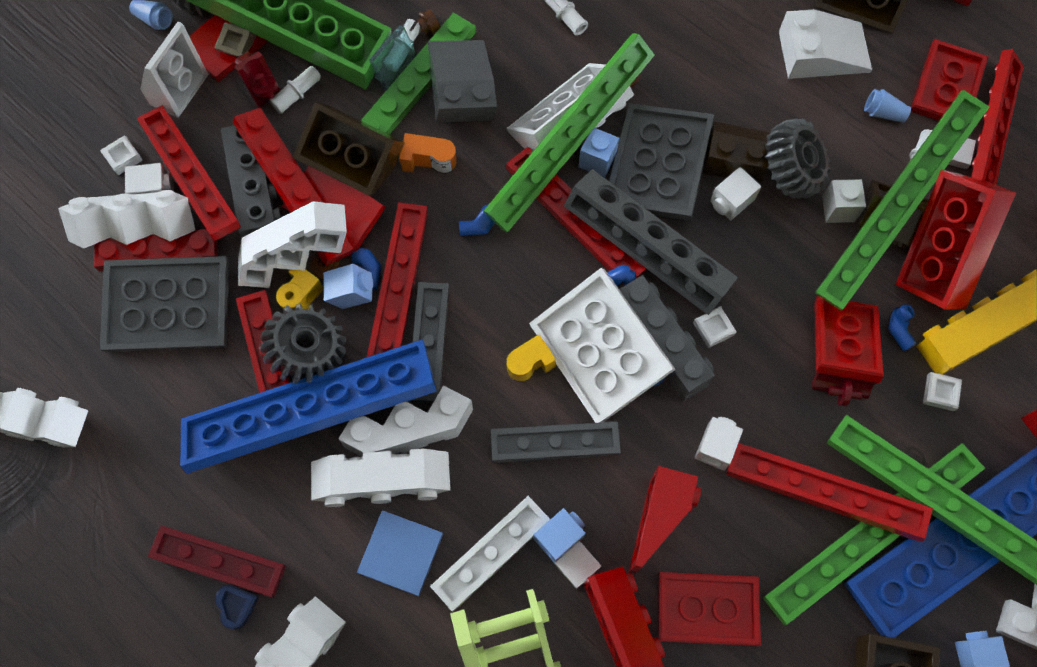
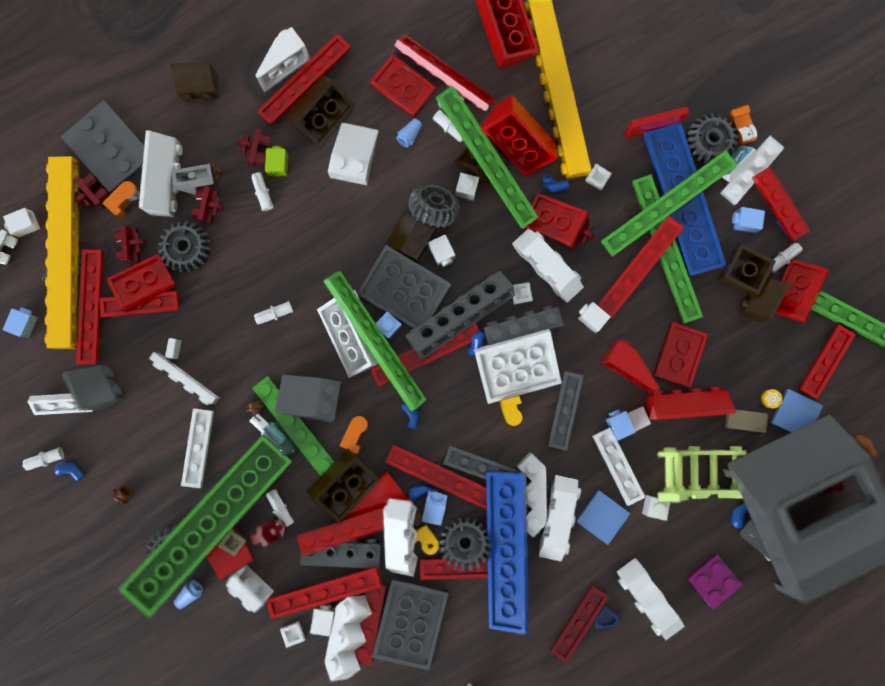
camera: 80 degrees left, 15 degrees up
(438, 635) = (655, 508): none -> white brick
(774, 349) = (548, 264): none -> white brick

